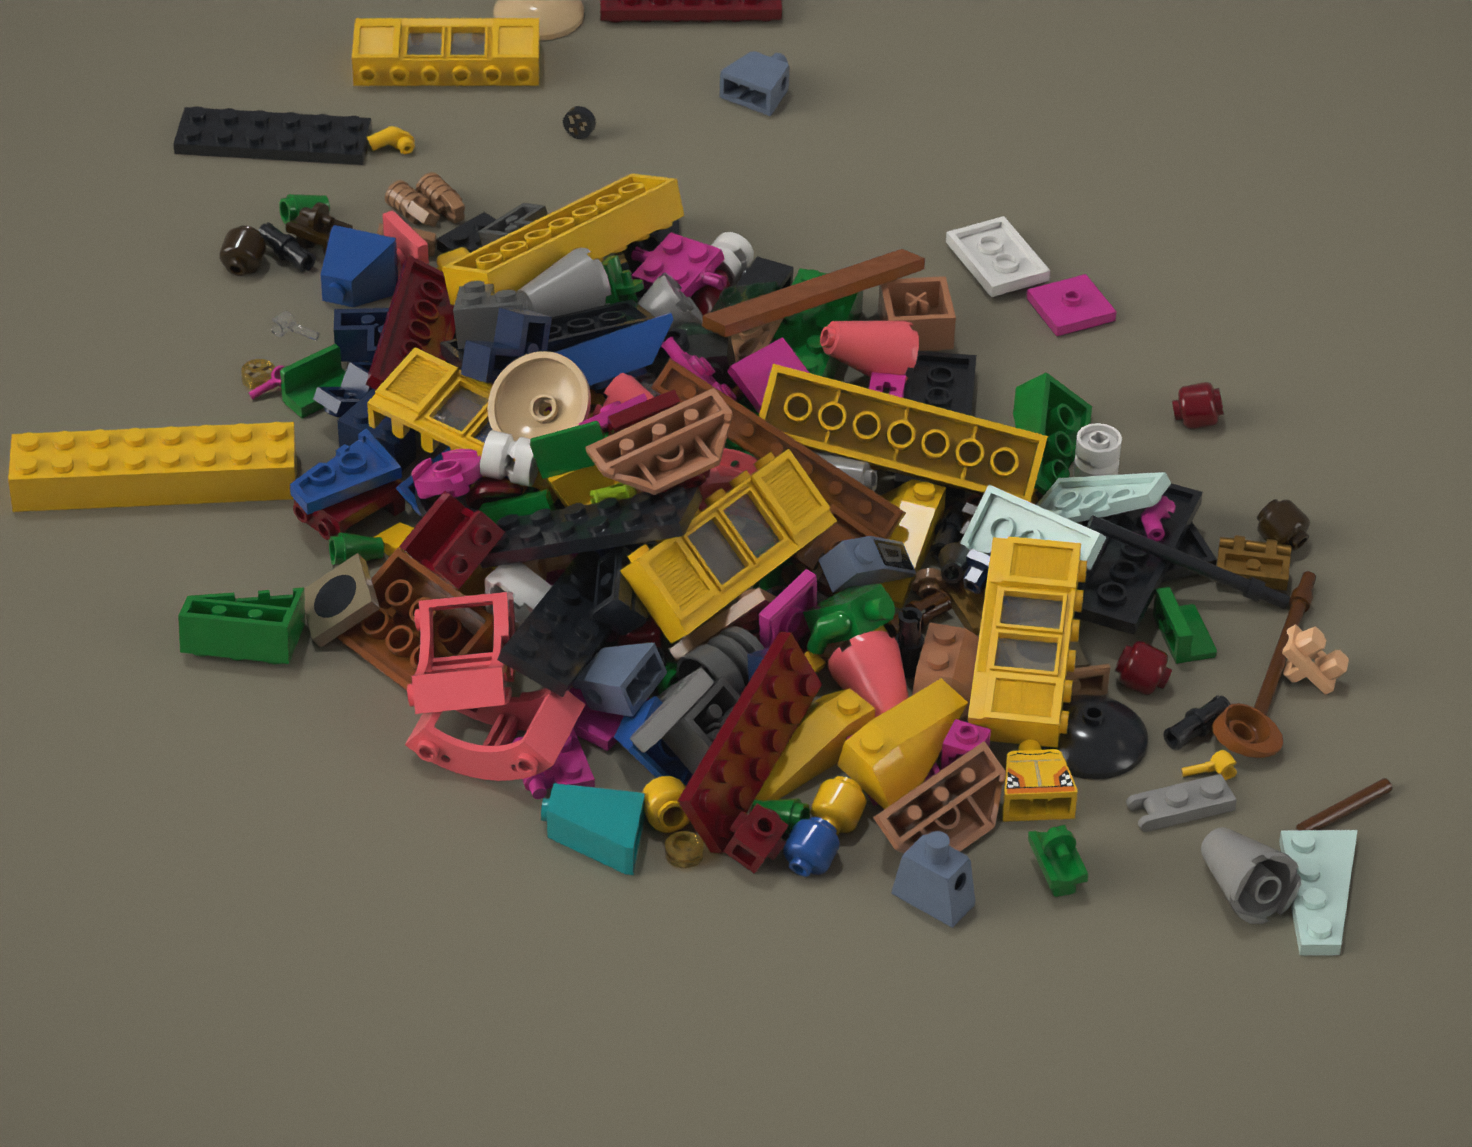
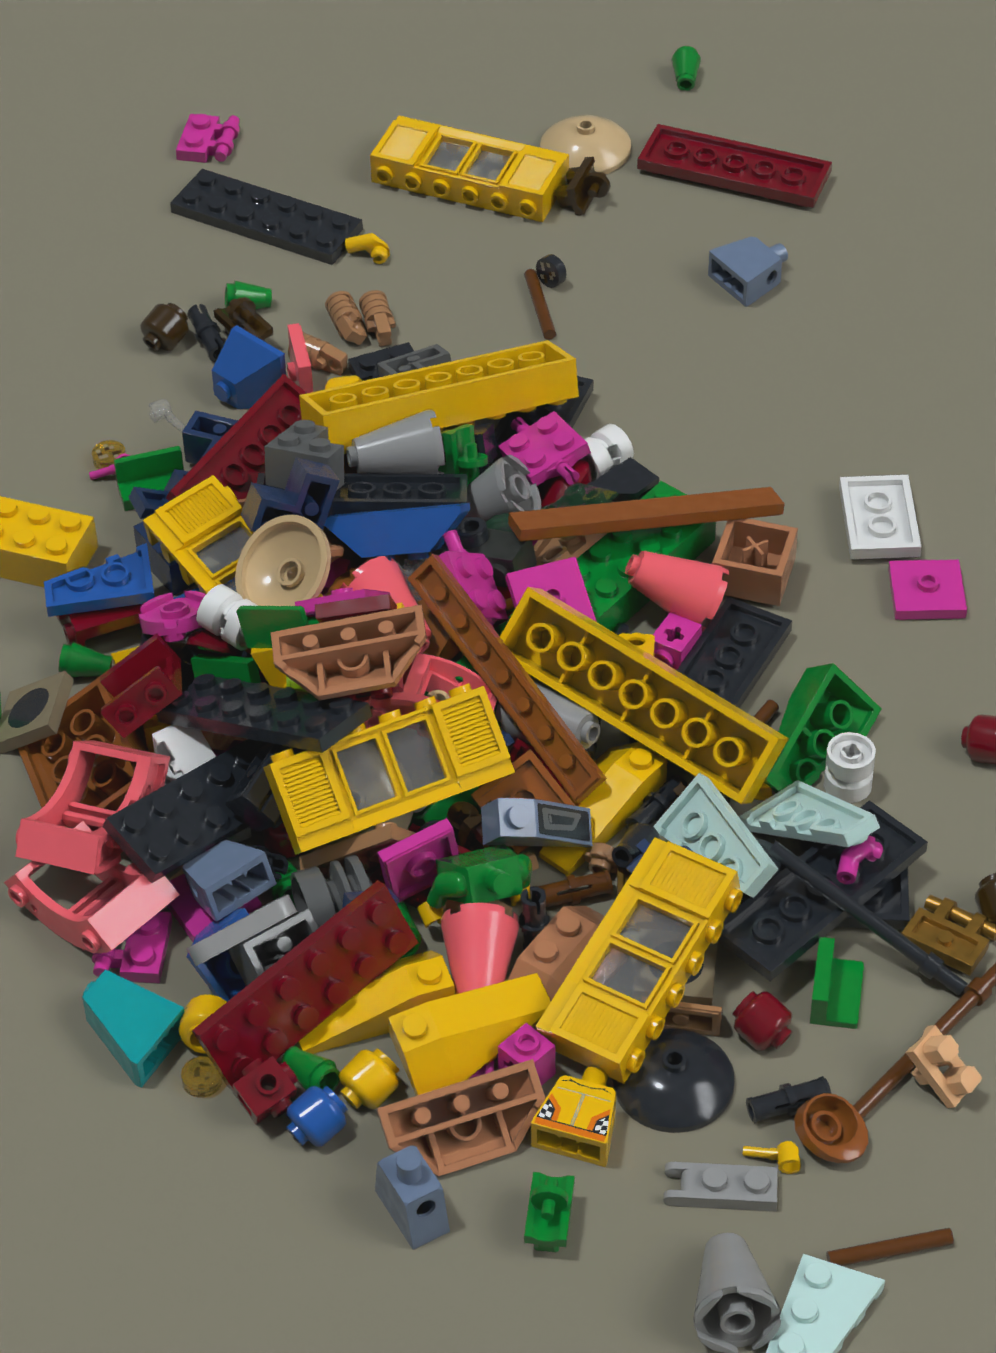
camera: 25 degrees right, 5 degrees up
(161, 76) = (199, 138): none -> dark pink plate
(562, 44) = (582, 187): none -> dark brown hips
(583, 154) = (540, 304): none -> reddish brown bar

